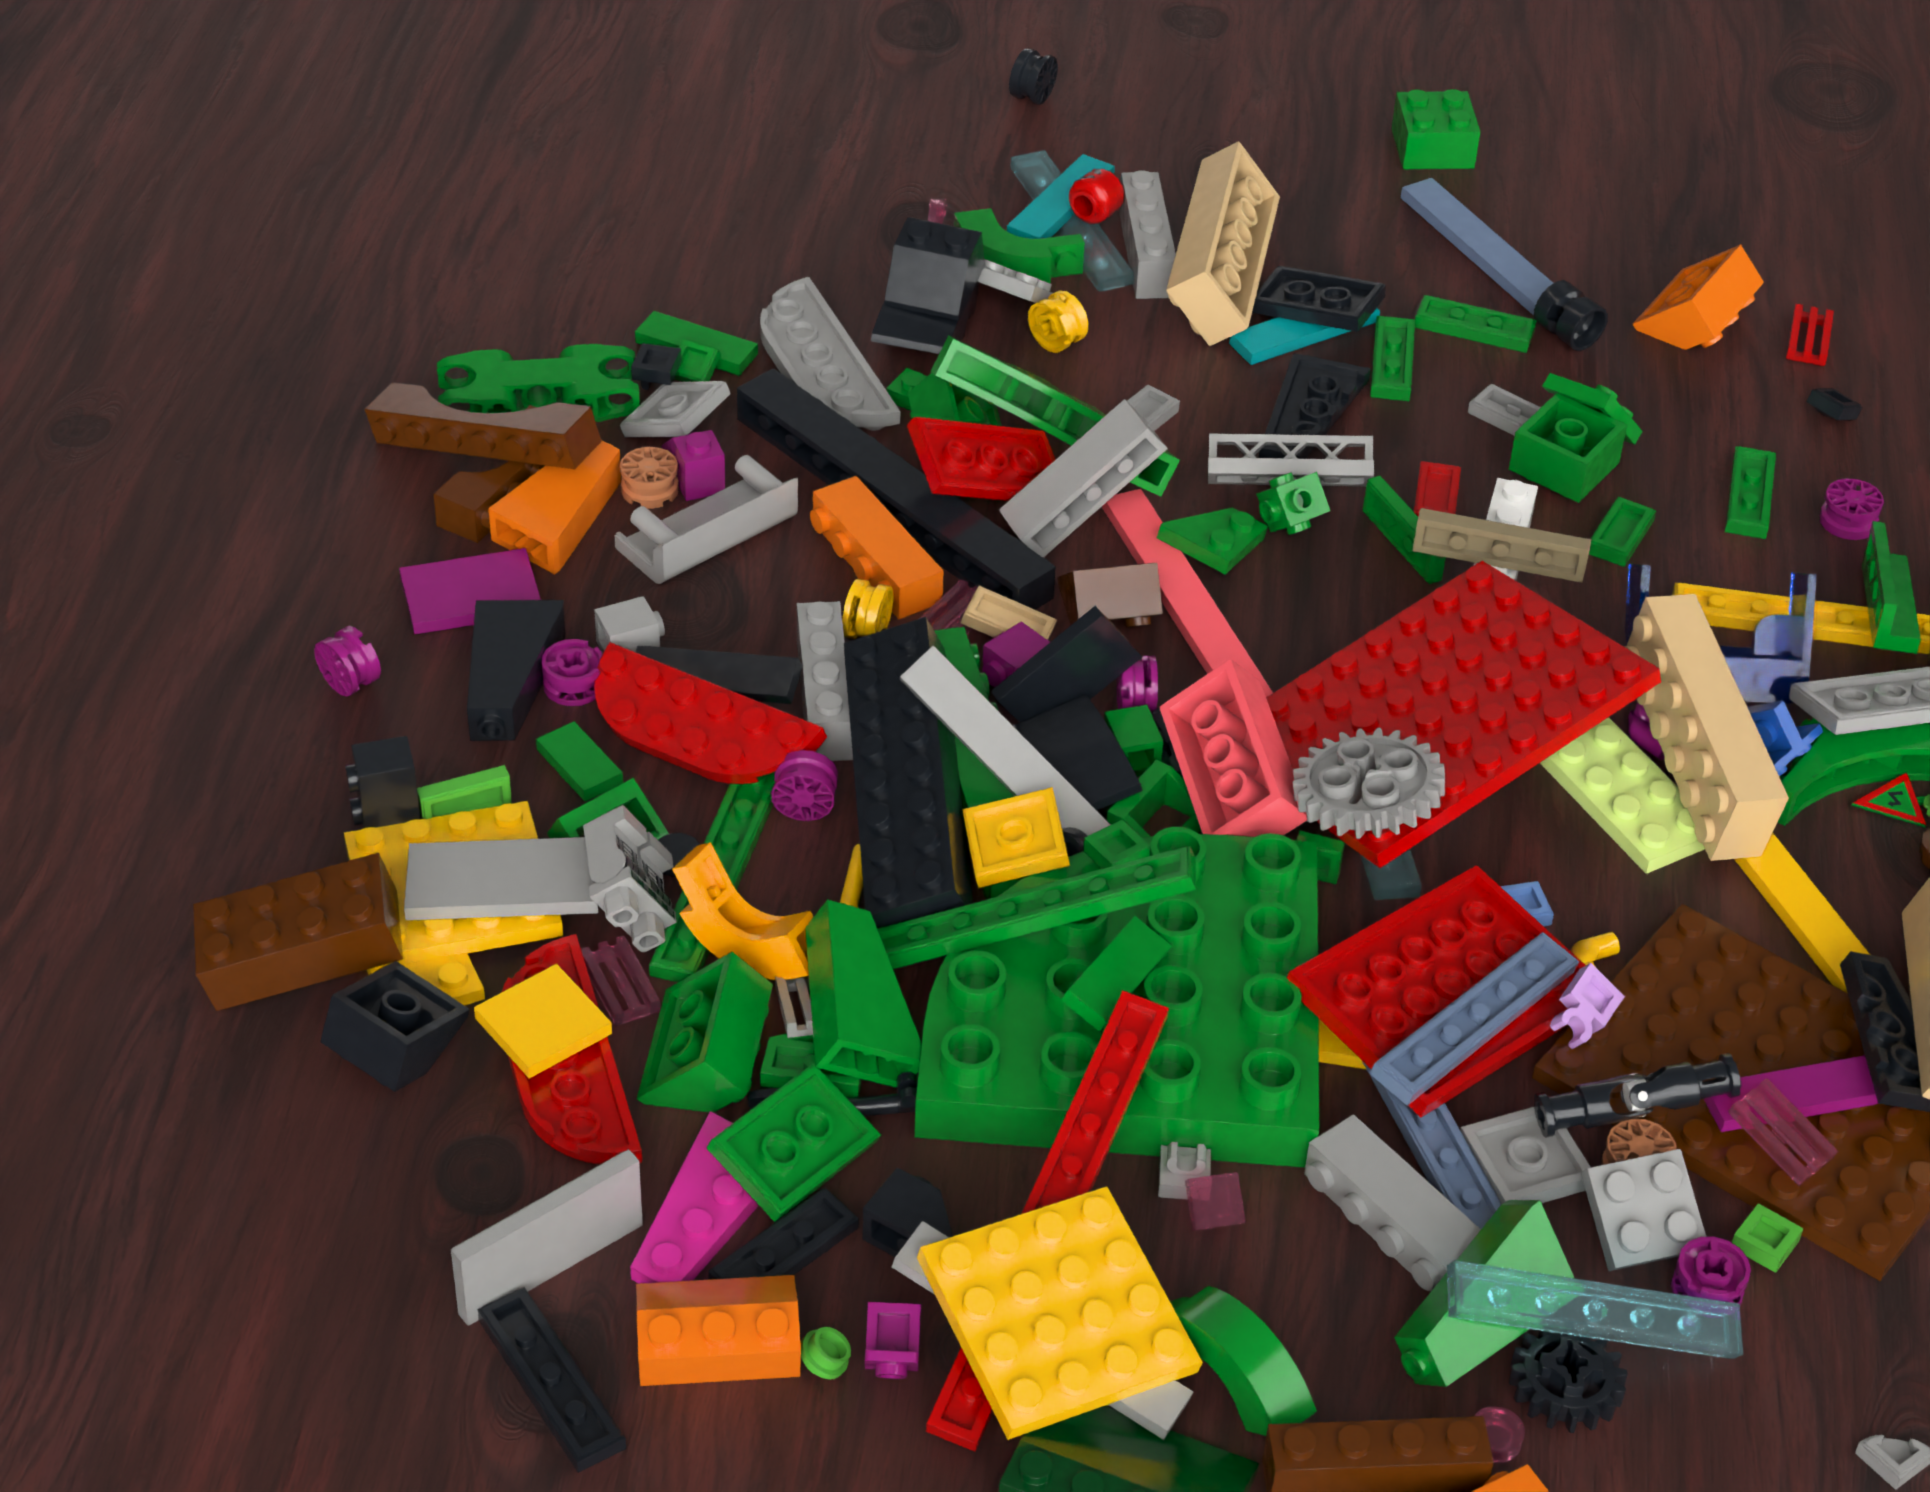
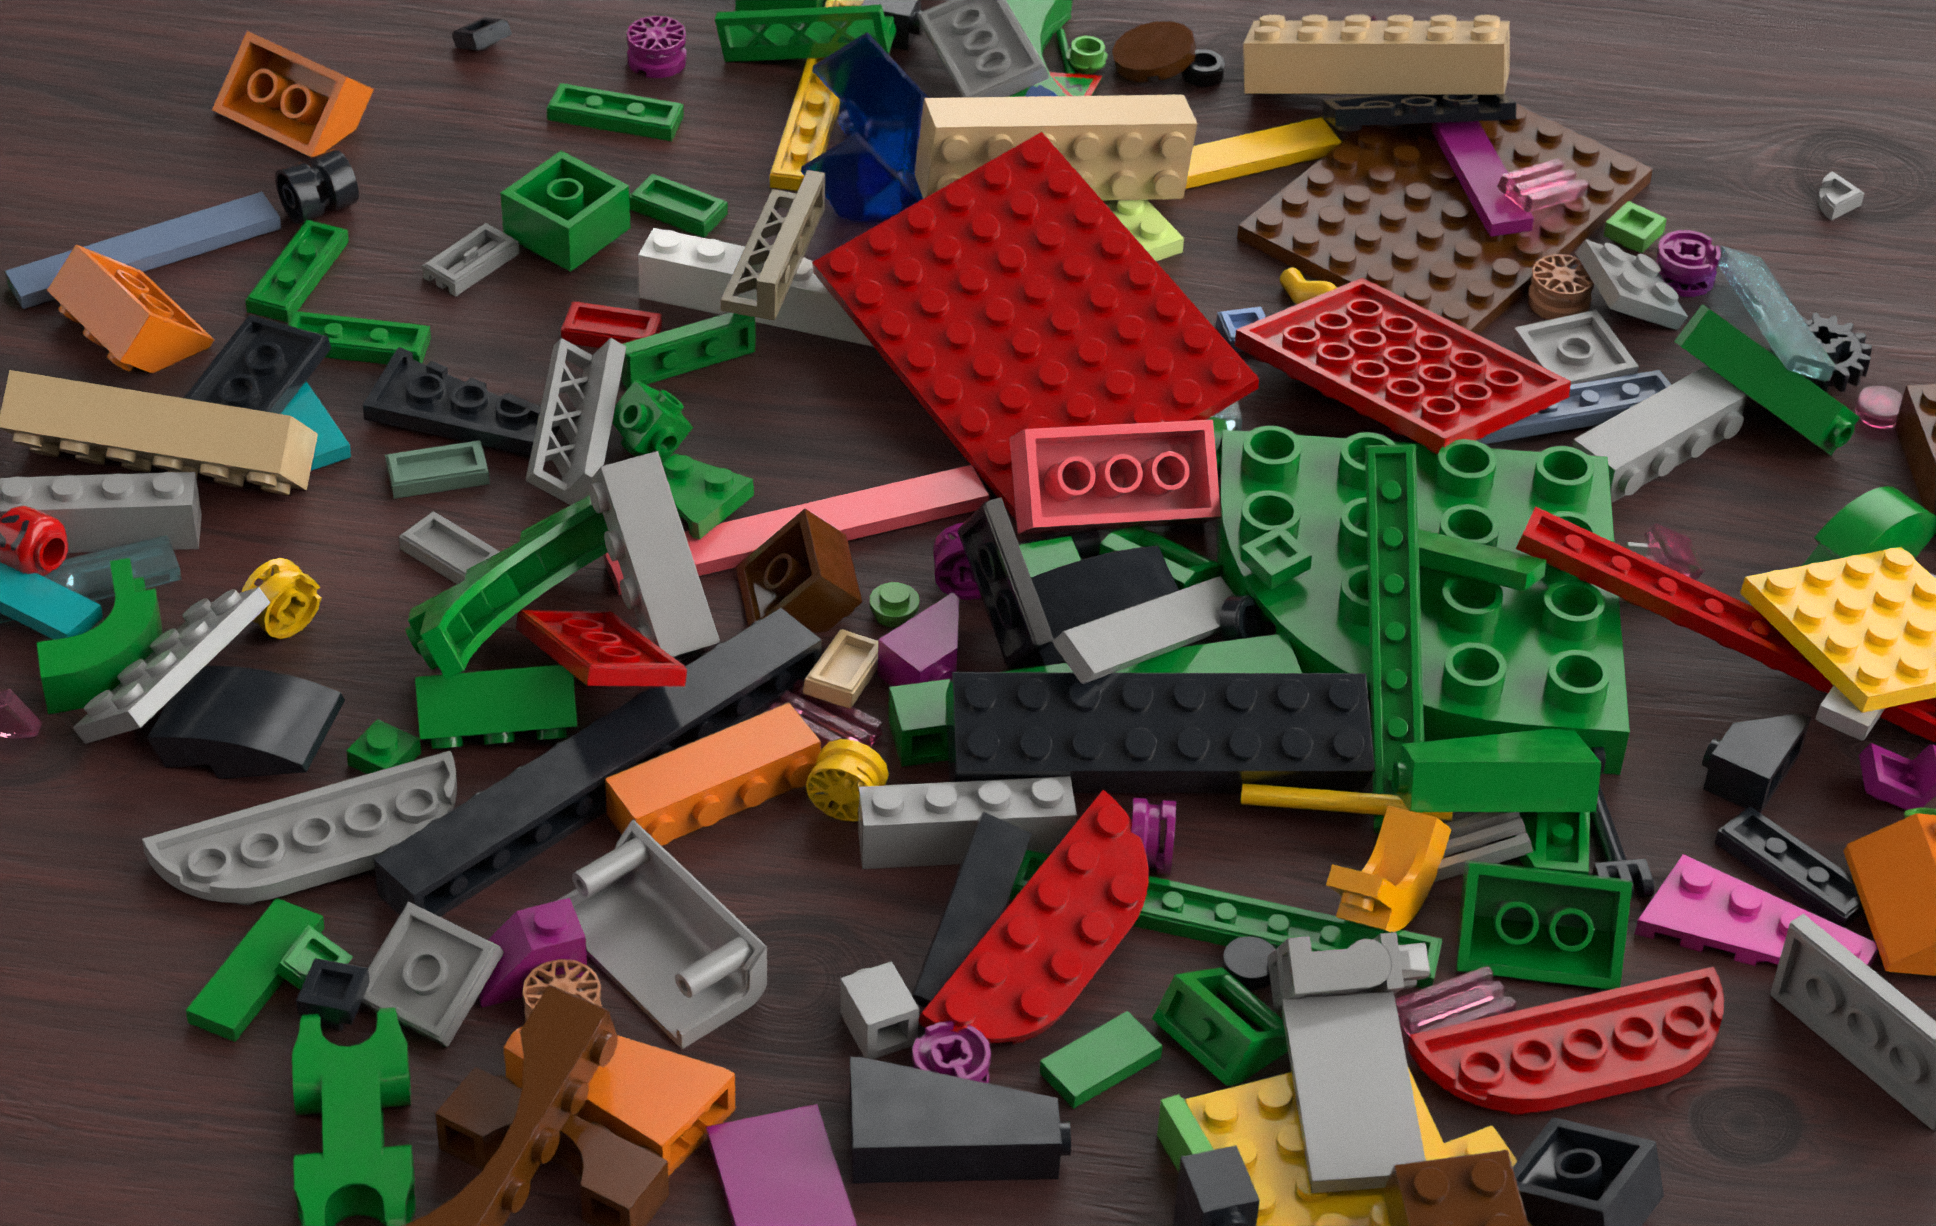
camera: 90 degrees left, 0 degrees up
(543, 1020) = (1560, 1049): yellow tile -> none
(793, 1142) = (1680, 842): green tile -> none
(934, 268) = (227, 669): black slope -> none
(1015, 837) = (1251, 633): yellow tile -> none
(1237, 404) = (437, 469): none -> sand green tile
(1369, 783) = (1186, 357): light grey gear -> none
(1391, 236) = (125, 312): none -> orange slope
(1473, 1018) = (1453, 342): sand blue tile -> none
(1590, 1004) = (1404, 281): lavender plate -> none
(1598, 398) = (515, 166): green wing -> none
(1670, 1087) = (1525, 258): black piece -> none
(1812, 319) = (349, 36): red tile -> none

